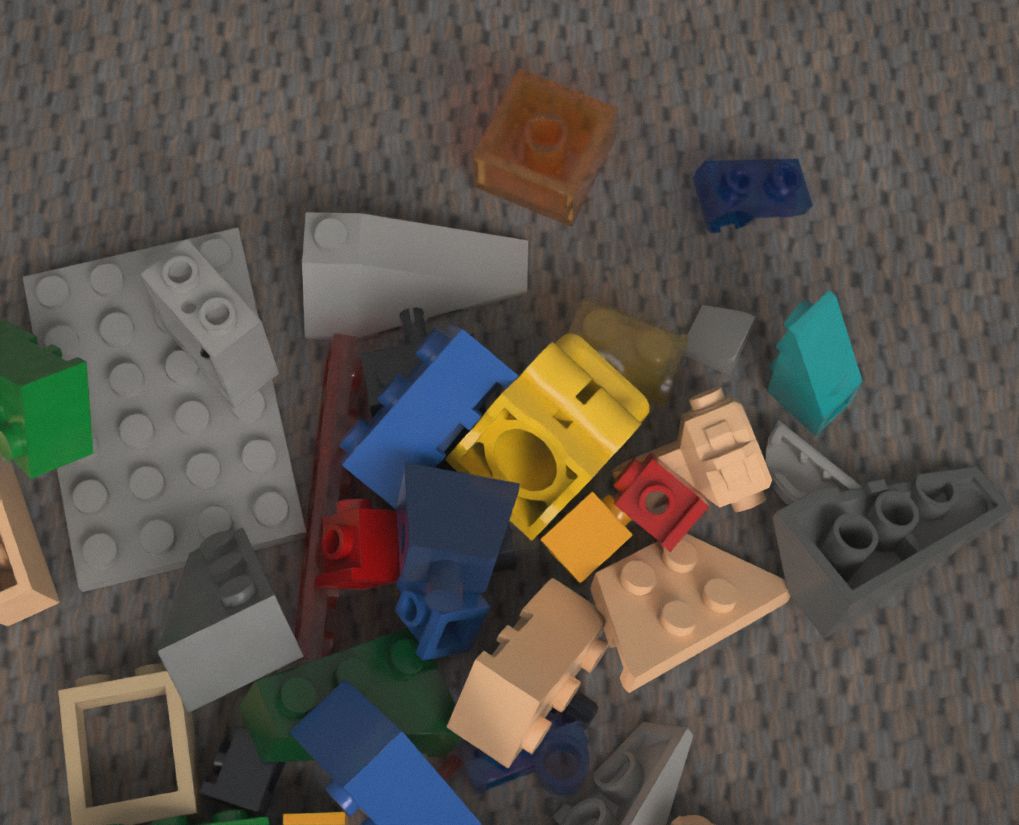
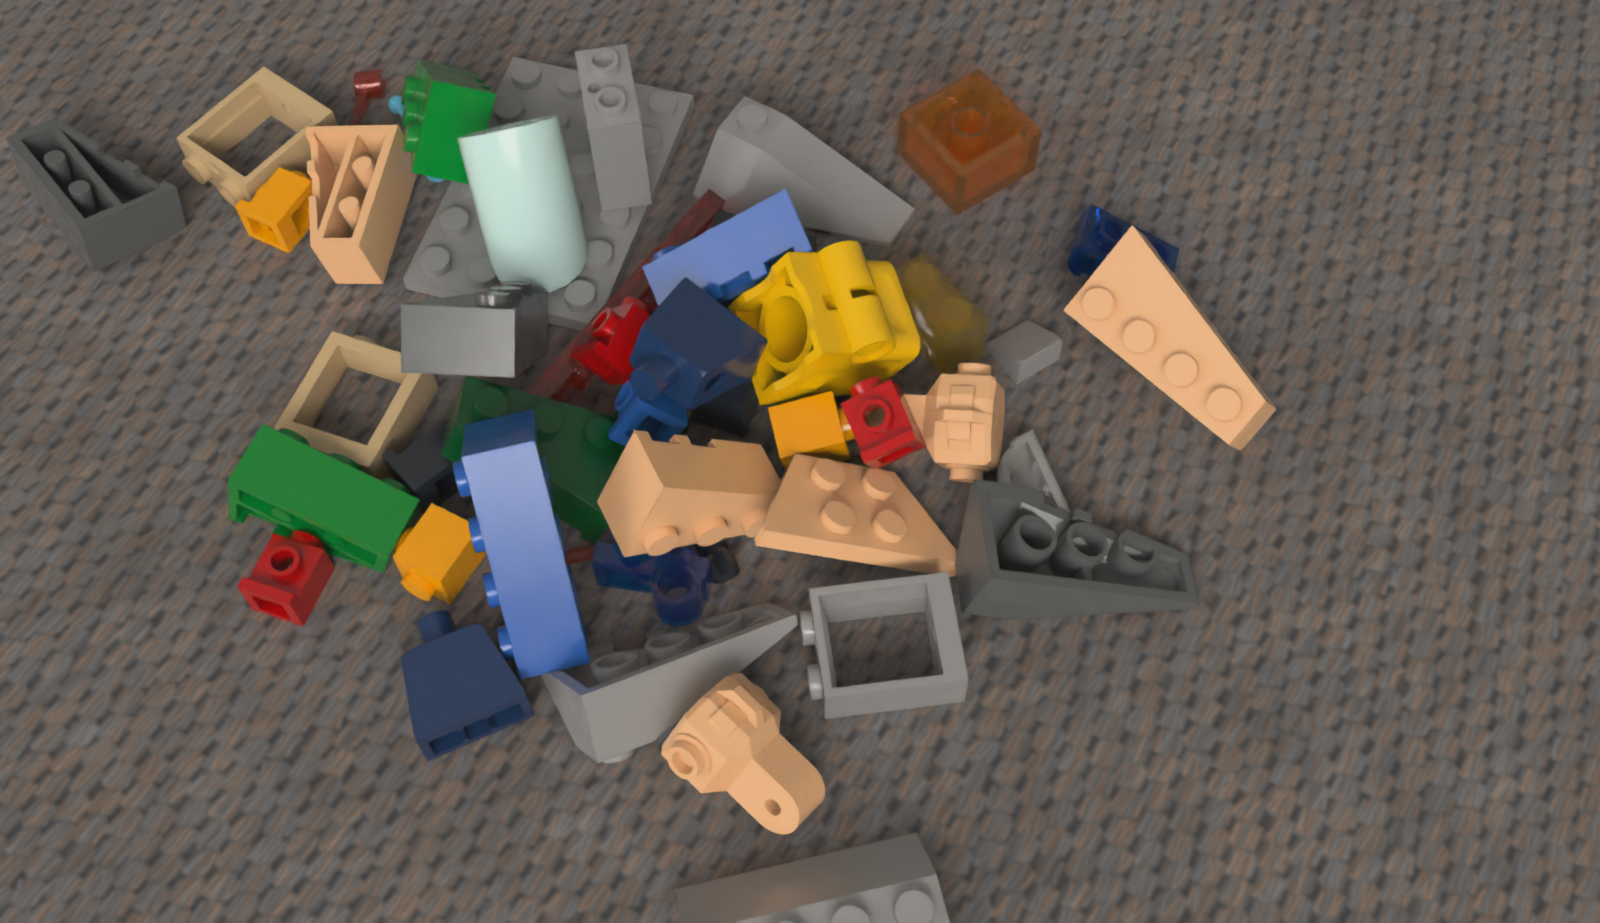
camera: 30 degrees right, 10 degrees down
(175, 450) = (526, 202): none -> light aqua brick
(815, 365) = (1084, 387): teal slope -> none
(817, 248) = (1161, 332): none -> light nougat wedge
(824, 673) = (877, 599): none -> light grey window

